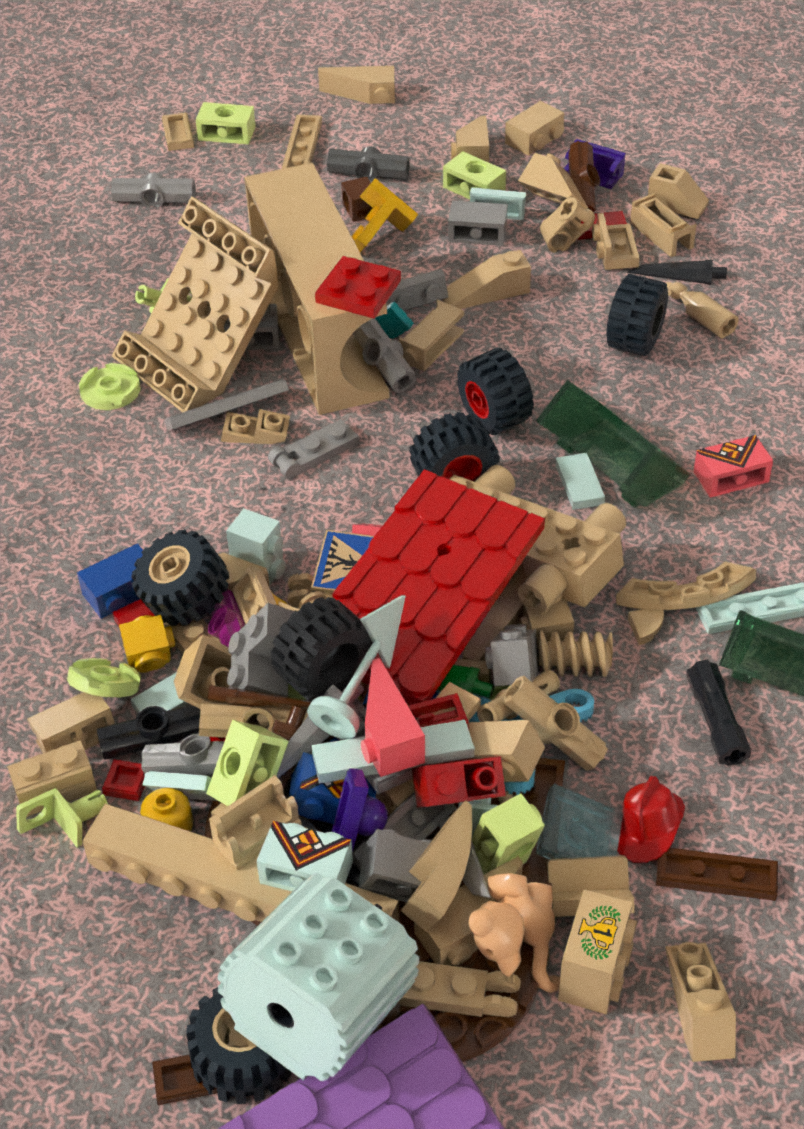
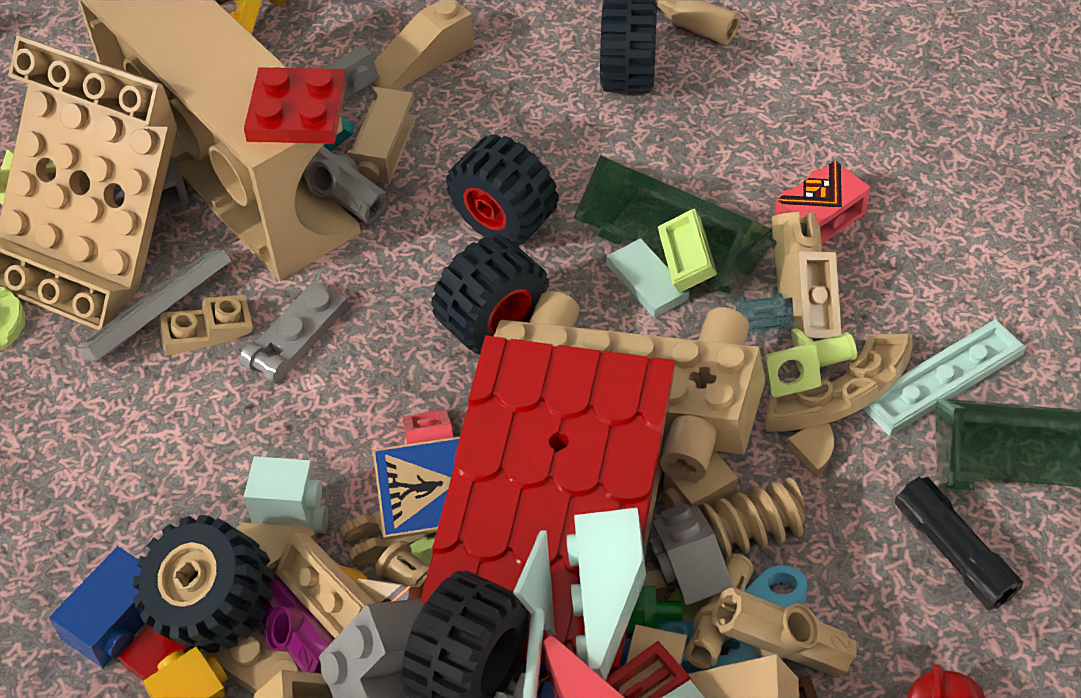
camera: 20 degrees left, 5 degrees up
(437, 640) = (611, 578): none -> light aqua slope
(613, 467) = (687, 250): none -> yellowish green tile
(650, 525) = (774, 306): none -> clear light blue bush
(666, 561) = (808, 358): none -> yellowish green bracket
(693, 508) = (806, 274): none -> tan plate

